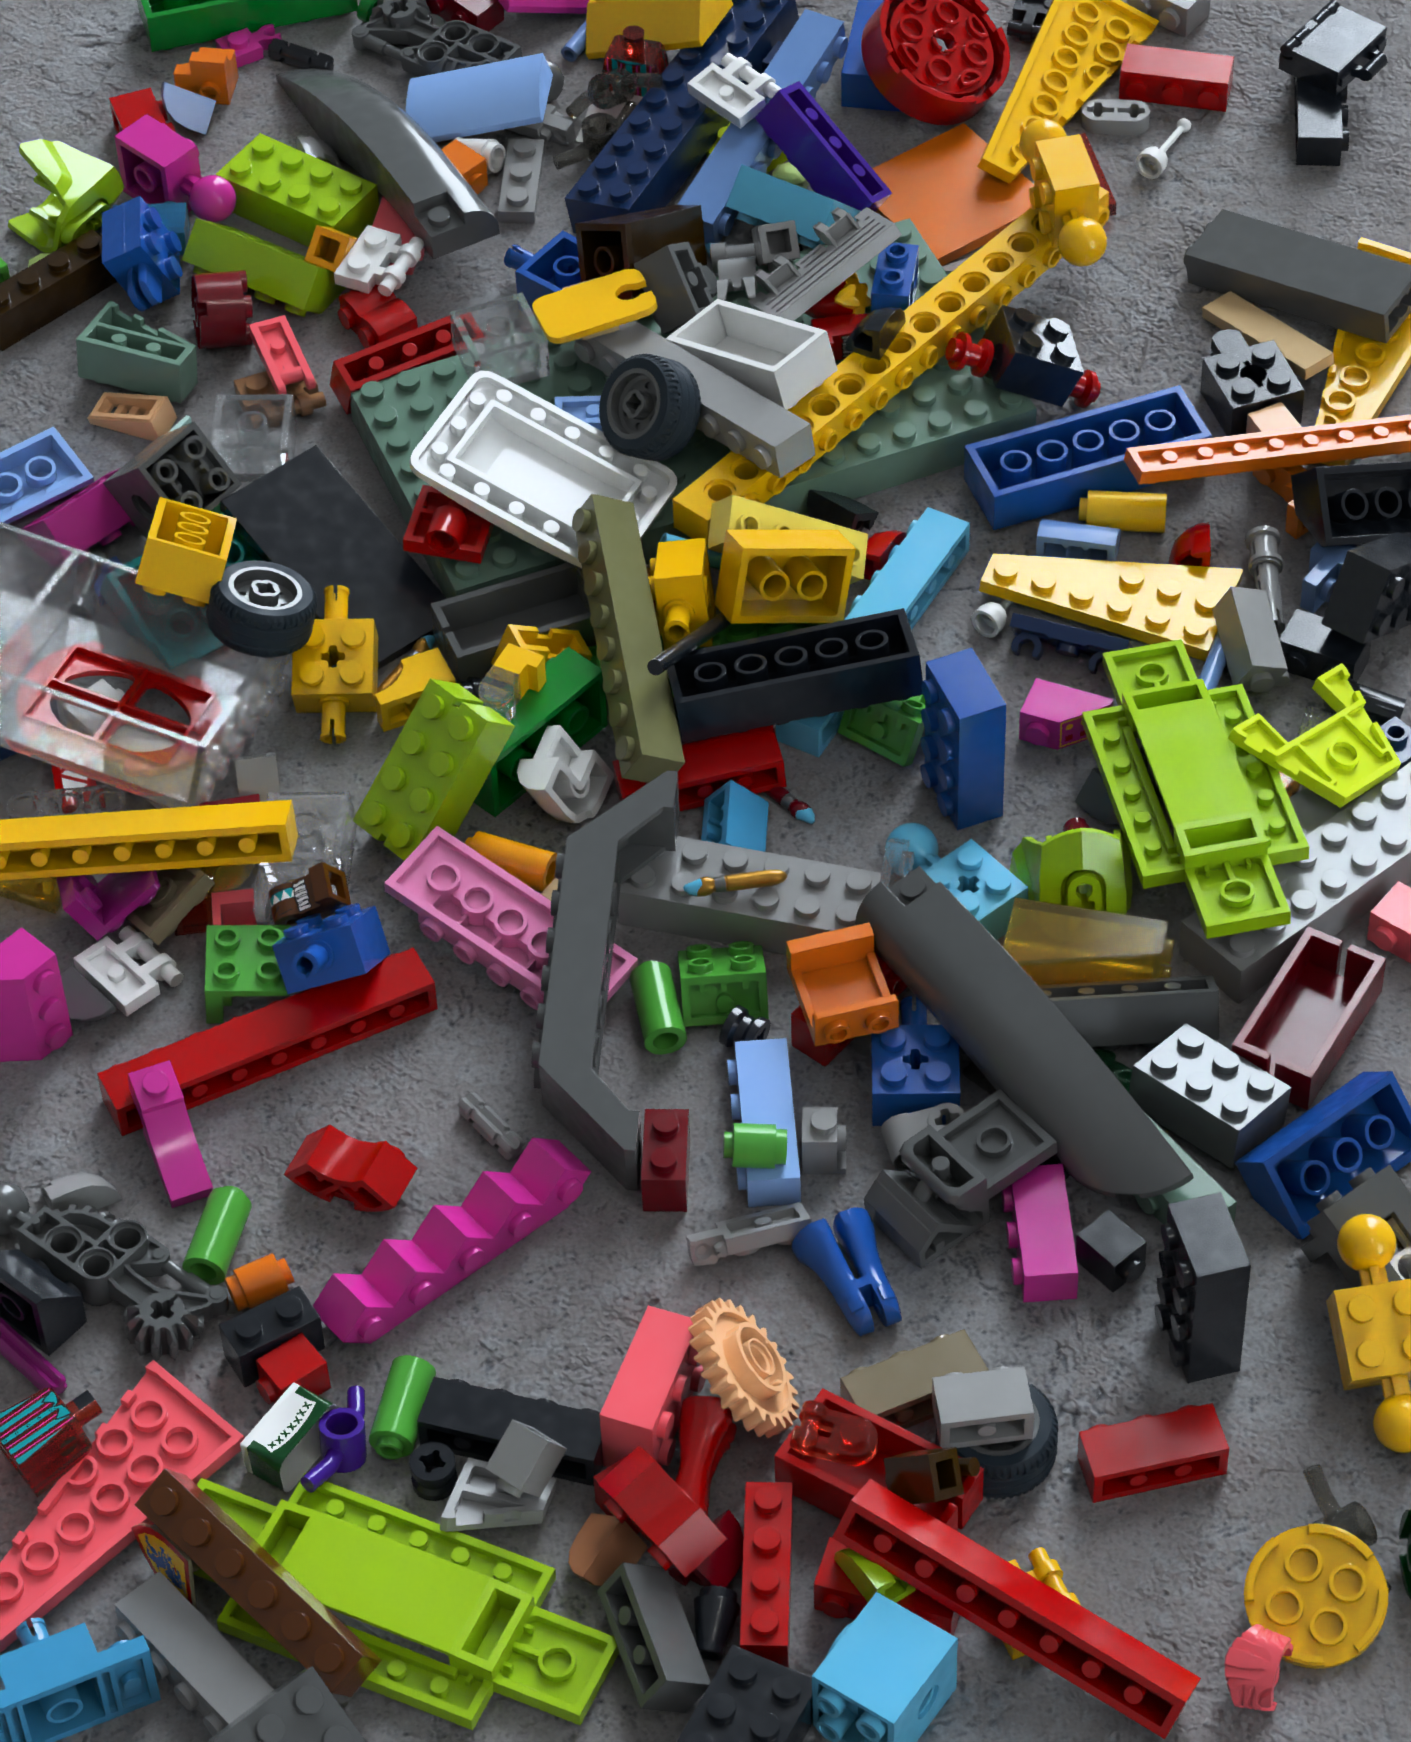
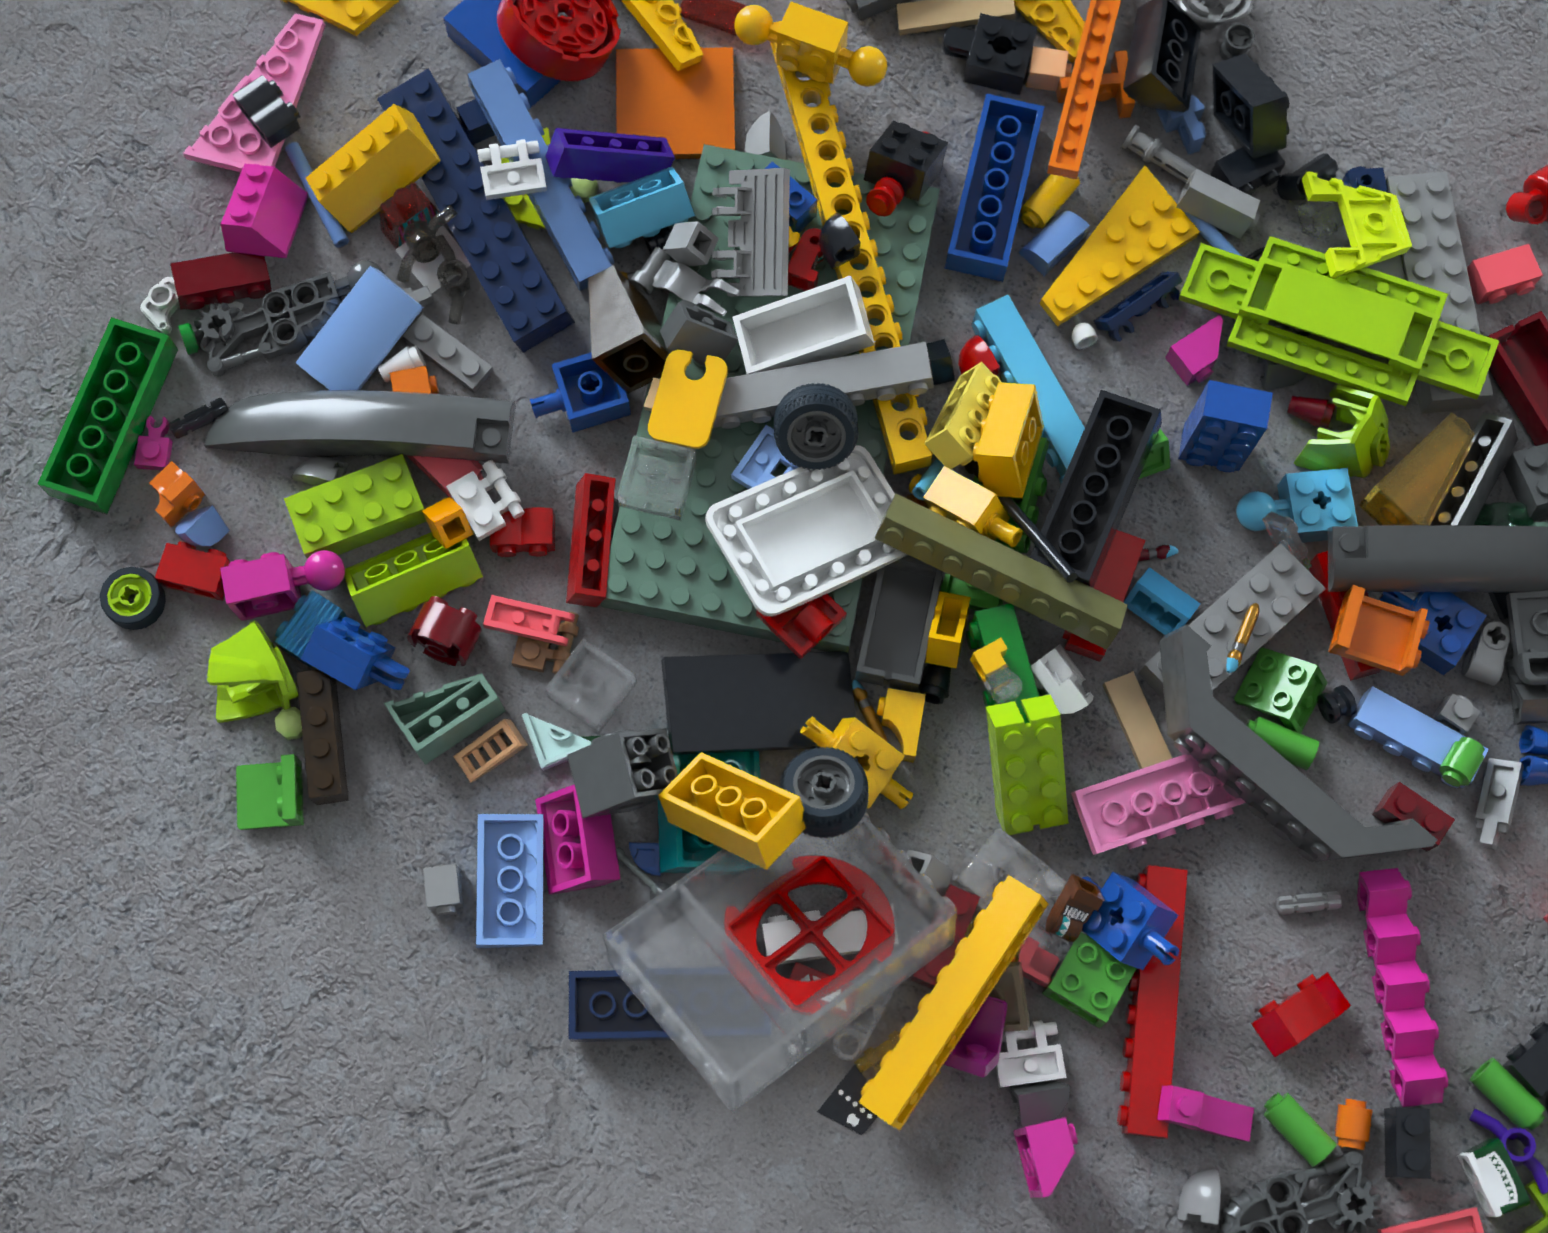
camera: 60 degrees left, 25 degrees up
(80, 106) = (147, 603): none -> wheel
(289, 1363) = (1447, 1148): red brick -> none
(523, 861) = (1098, 755): light orange brick -> none
(1192, 547) = (1106, 181): red brick -> none

